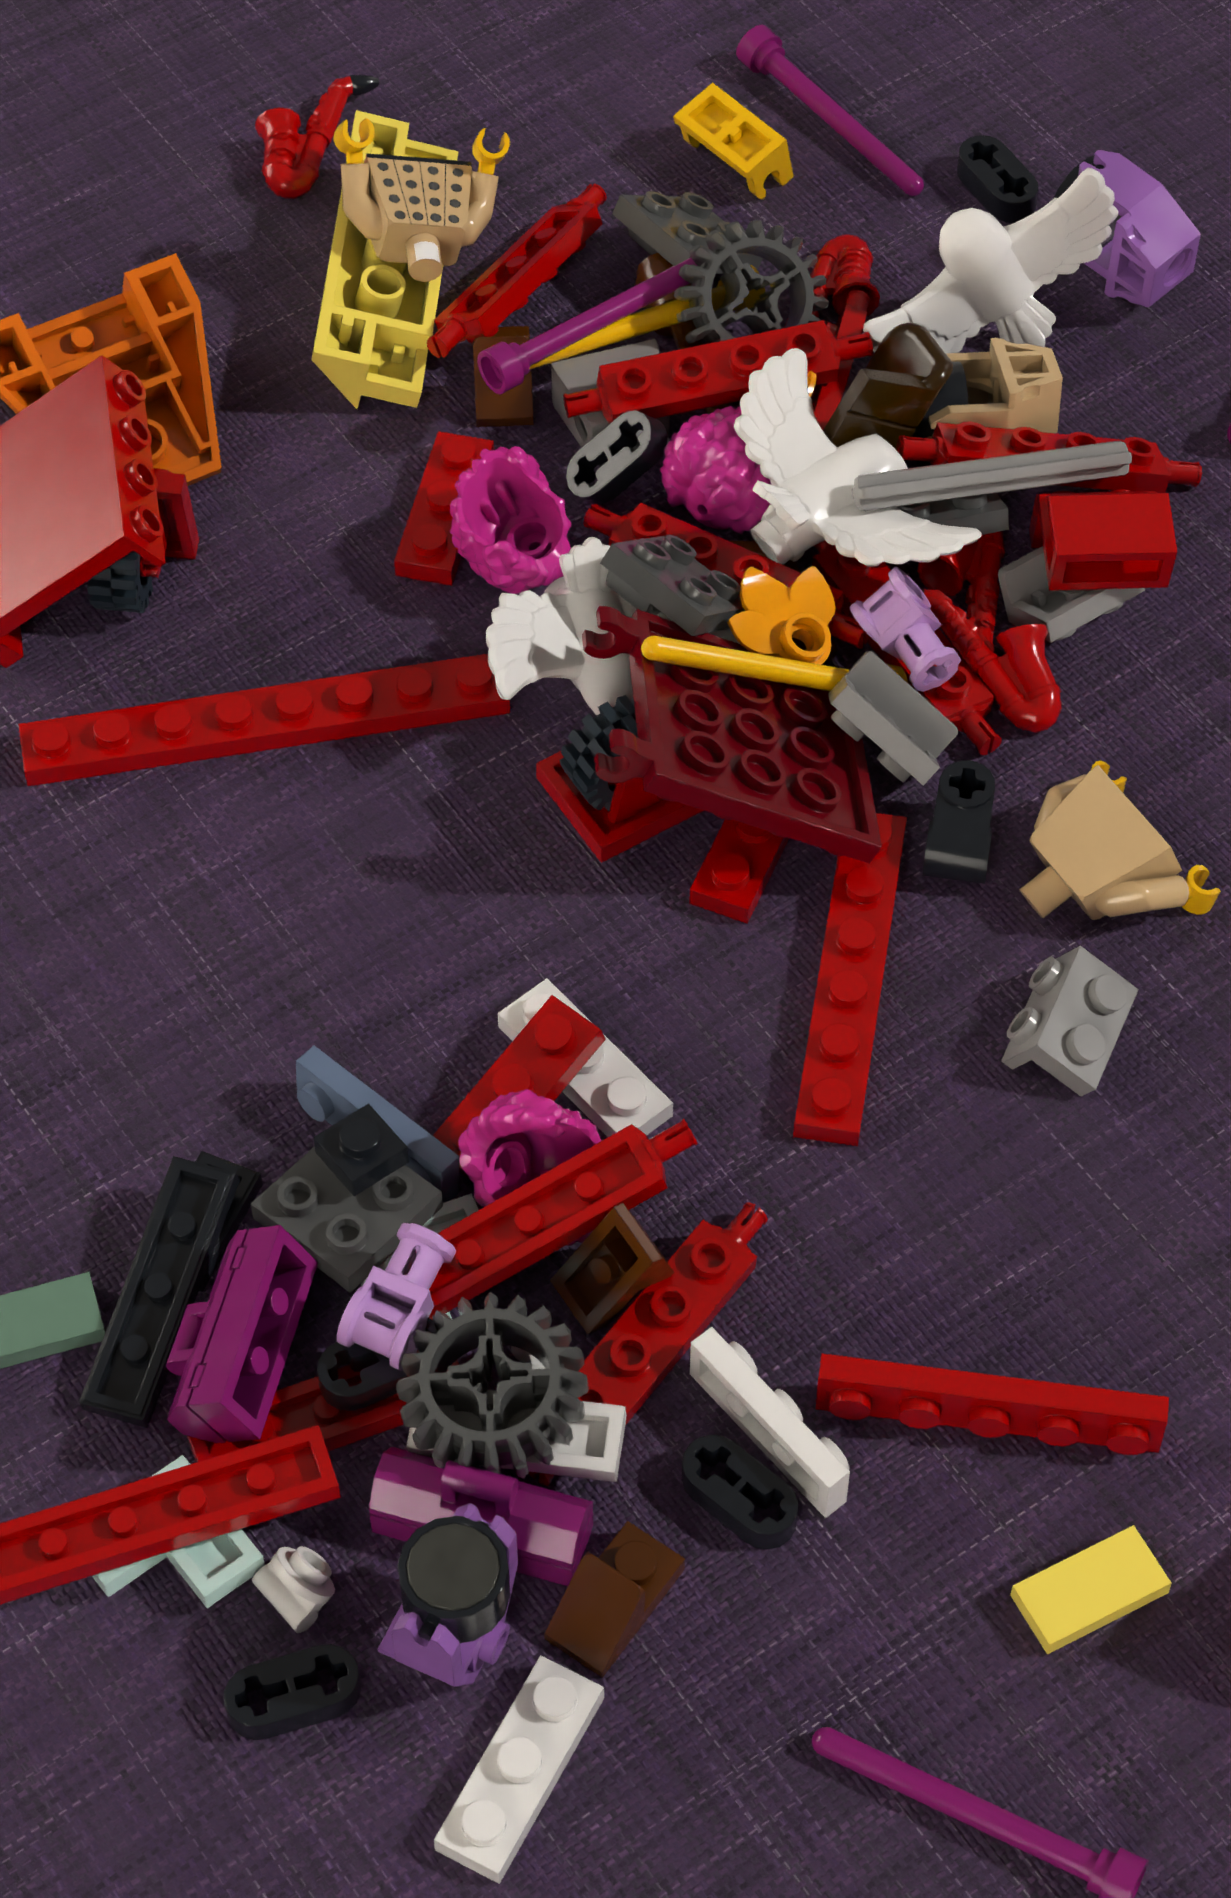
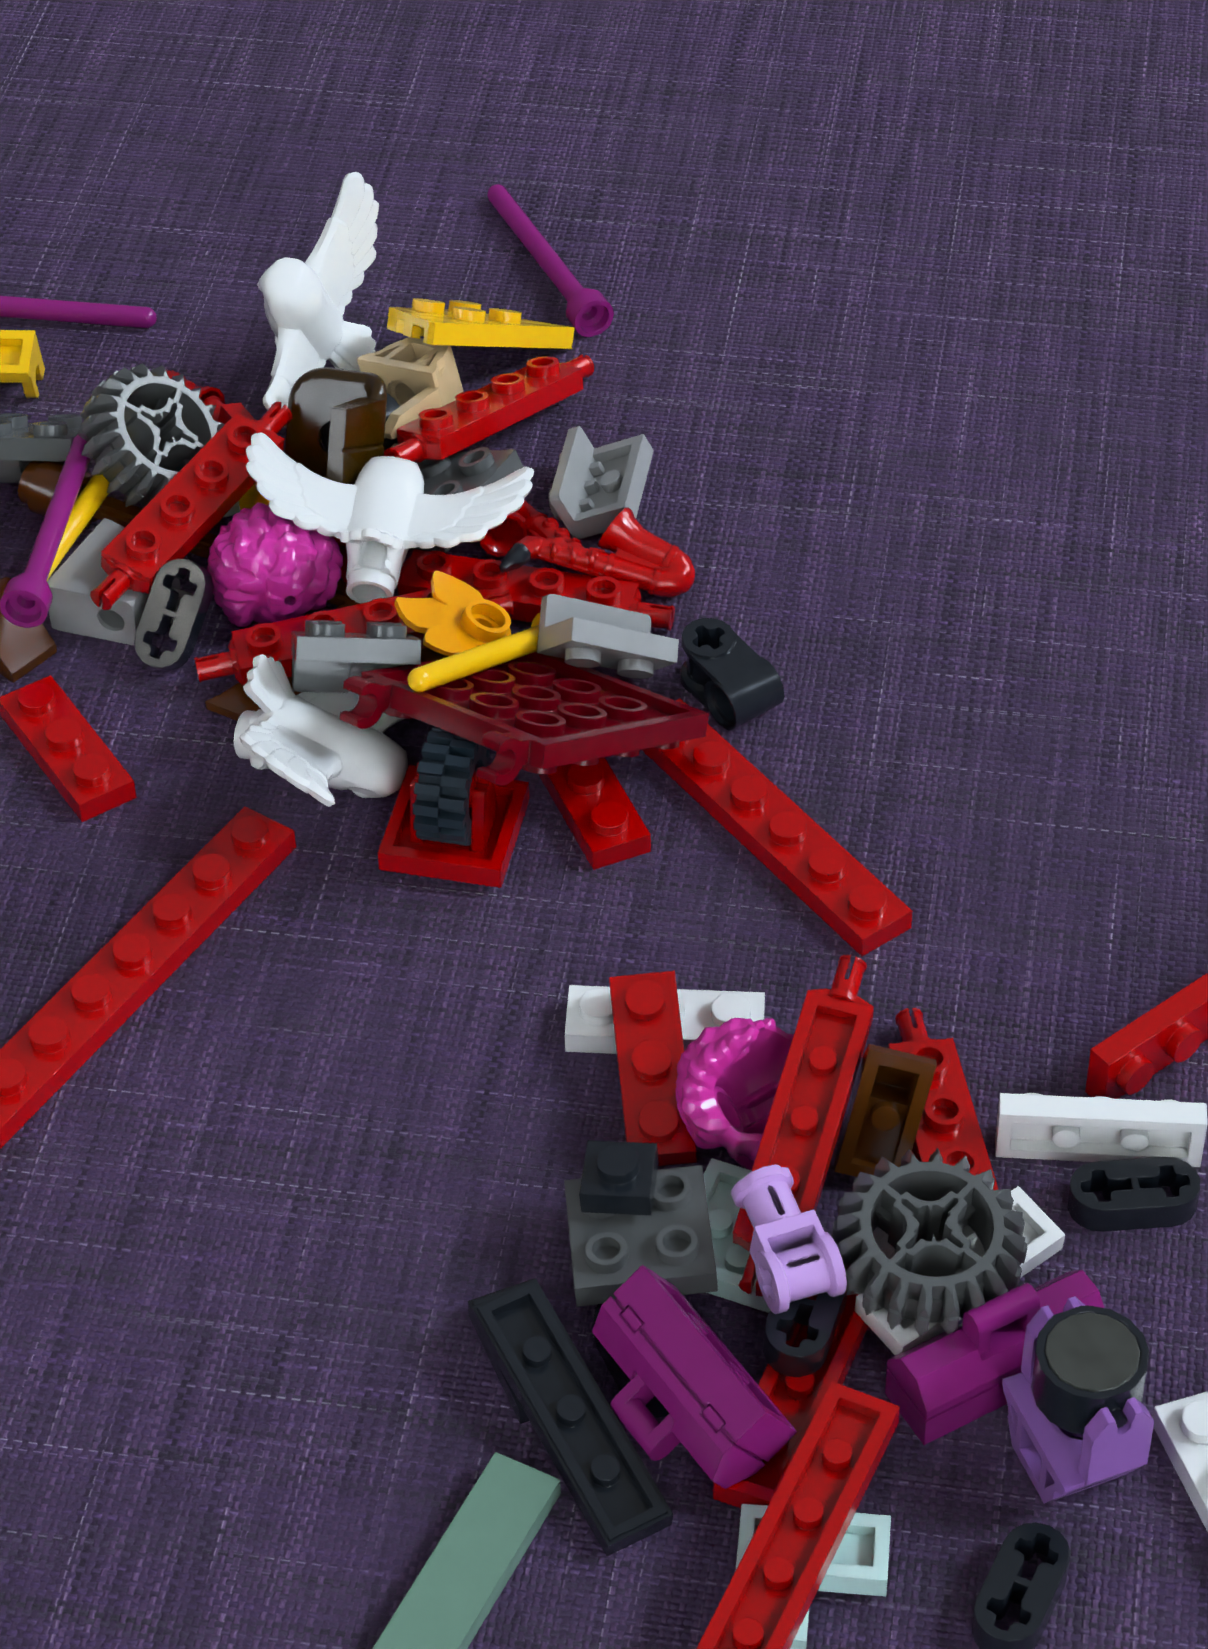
camera: 45 degrees left, 10 degrees down
(296, 1585) = (930, 1521): white plate -> none
(333, 1093) = (534, 1174): sand blue plate -> none
(509, 521) = (153, 708): dark pink hair -> none
(613, 1598) = (1163, 1318): reddish brown slope -> none
(904, 627) = (539, 567): lavender connector -> none
(990, 182) = (204, 275): black beam -> none
(991, 475) = (483, 433): light grey axle -> none
(1071, 1019) = (948, 738): light grey bracket -> none
(1105, 539) = (601, 424): red piece -> none
(1107, 854) = (844, 617): tan torso -> none
(1123, 375) = (470, 326): none -> yellow wing
(1150, 239) = (398, 240): medium lavender piece -> none

